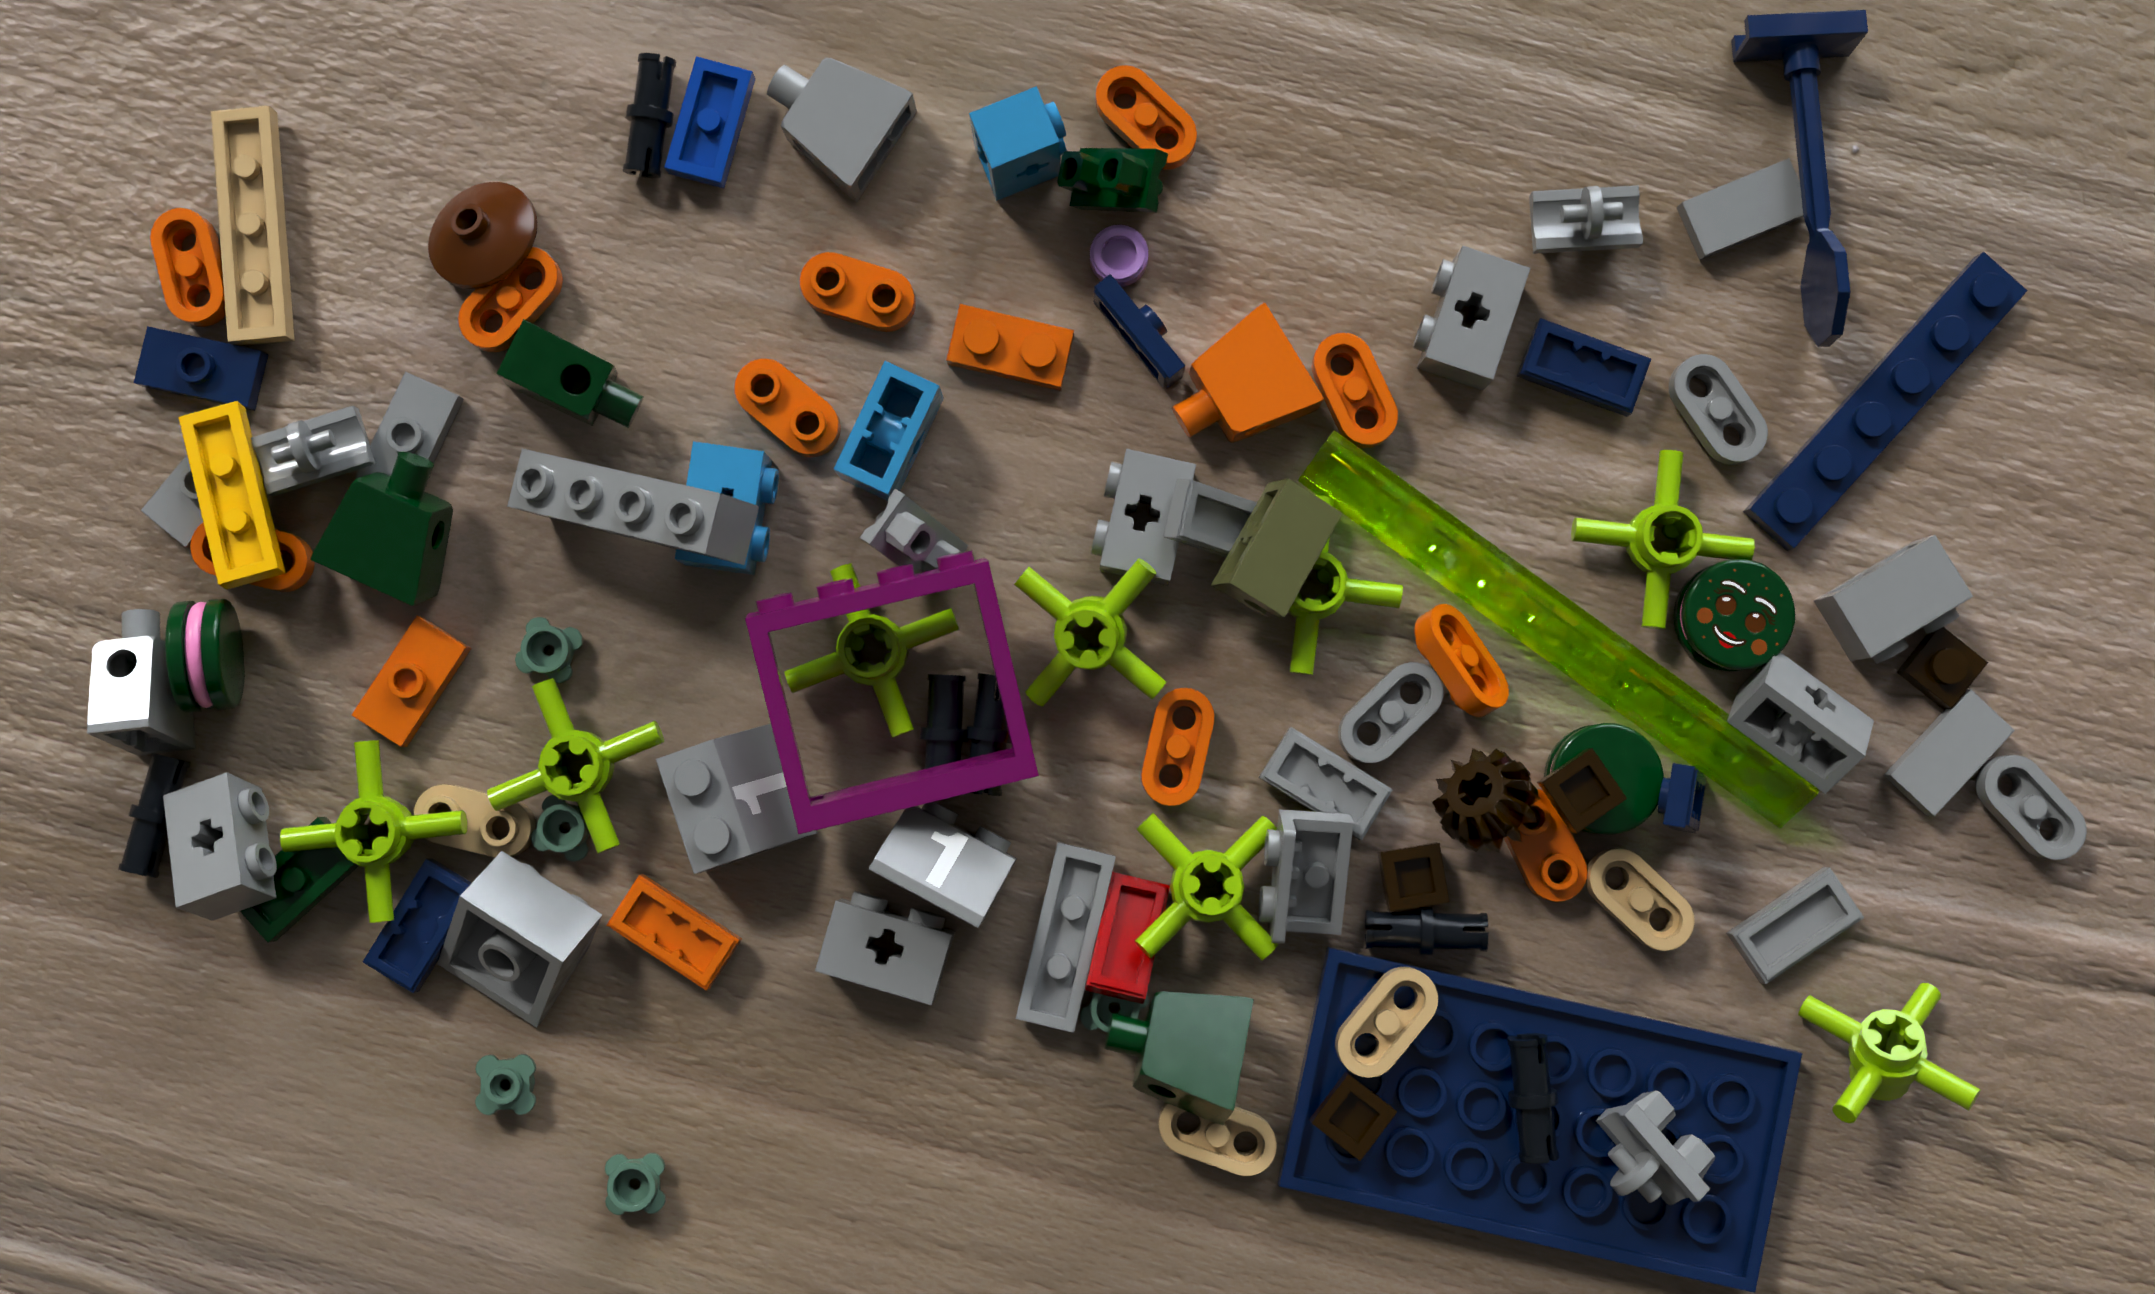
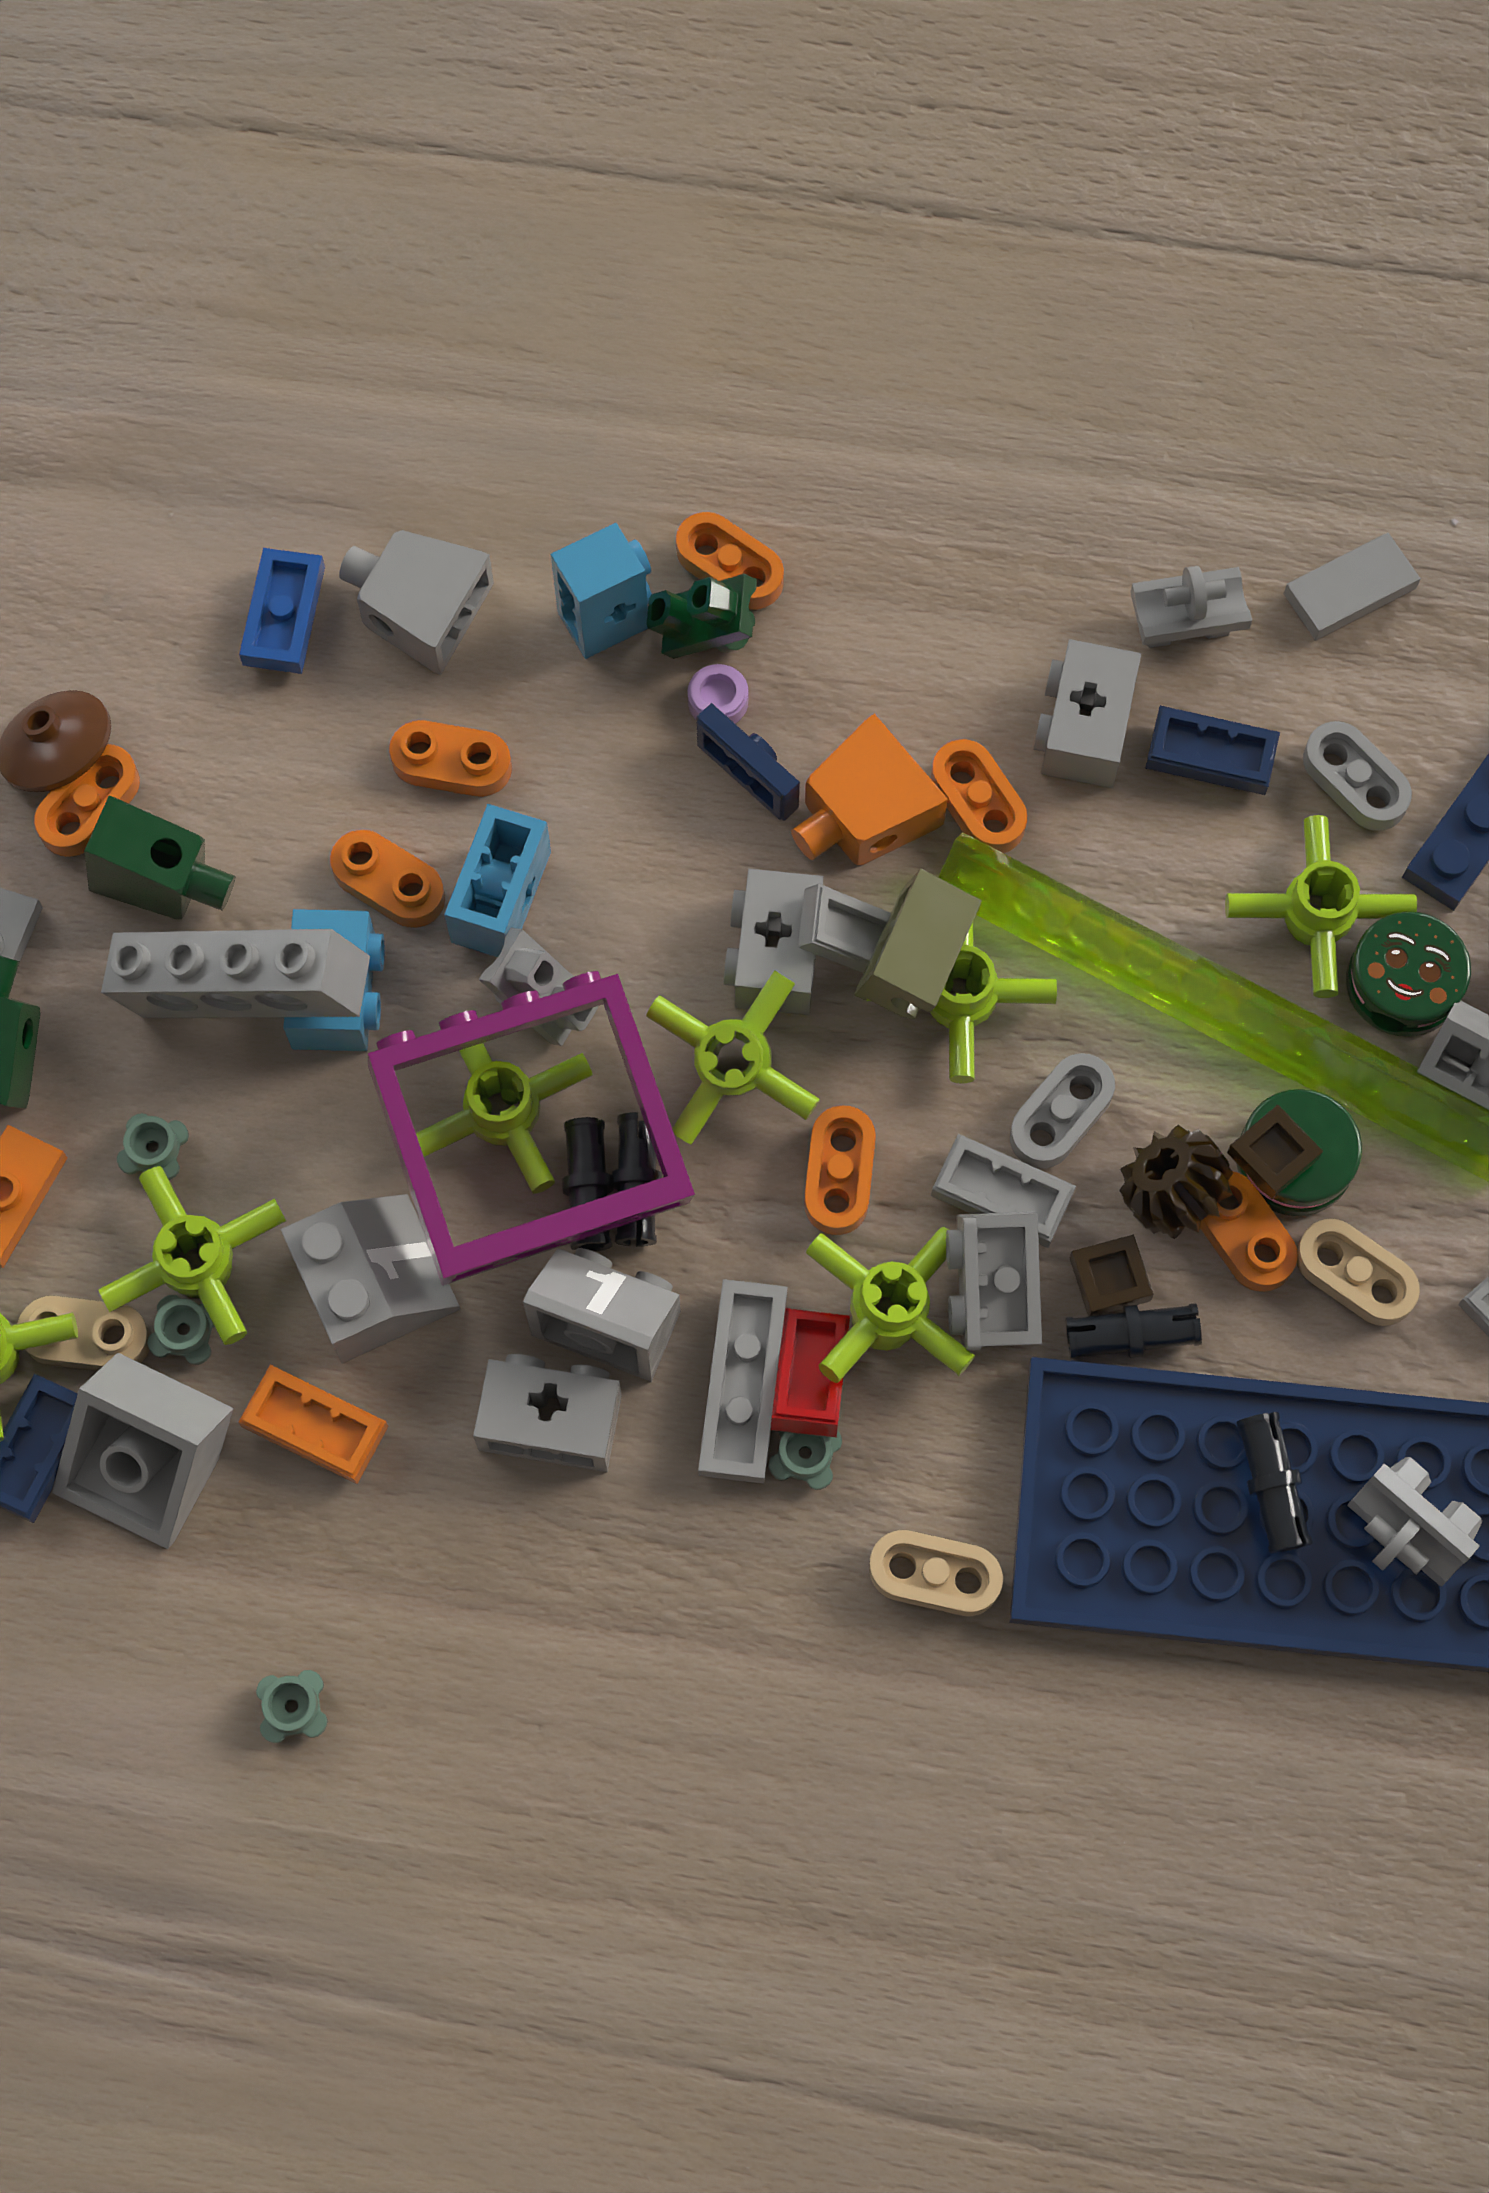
camera: 10 degrees left, 15 degrees down
(521, 1076) = (154, 1622): sand green plate -> none
(649, 115) = (219, 610): black pin -> none
(1010, 347) = (615, 795): orange plate -> none
(1187, 1050) = (890, 1477): dark green torso -> none
(1353, 1116) = (1080, 1523): dark brown plate -> none
(1391, 1026) = (1101, 1421): tan plate -> none
(1461, 660) = (1129, 1049): orange plate -> none
(1682, 798) = (1384, 1153): dark blue plate -> none
(1800, 43) = (1382, 425): dark blue piece -> none

